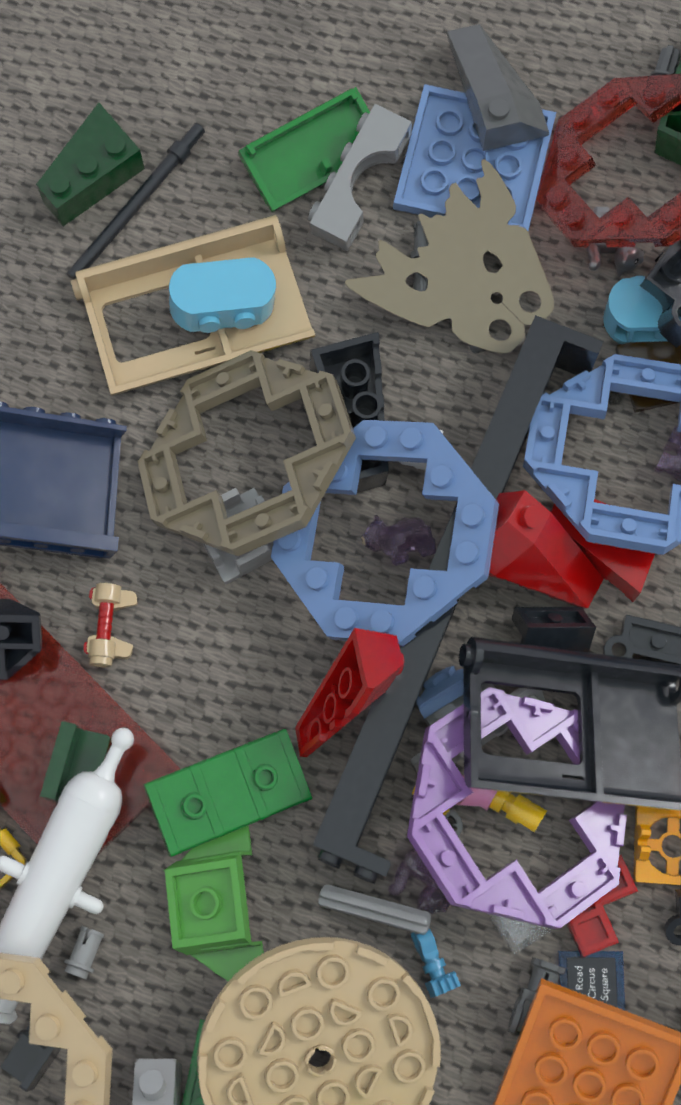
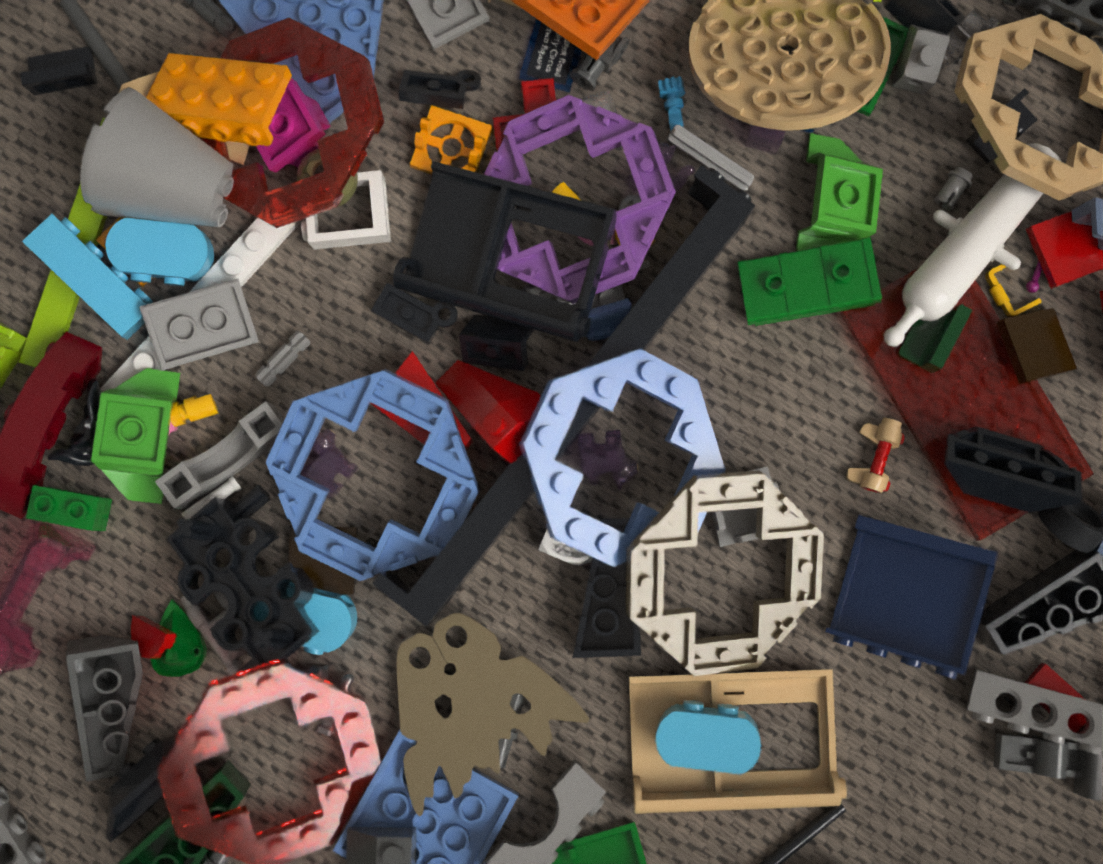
camera: 165 degrees left, 10 degrees up
(353, 682) = (689, 324): red wedge -> none

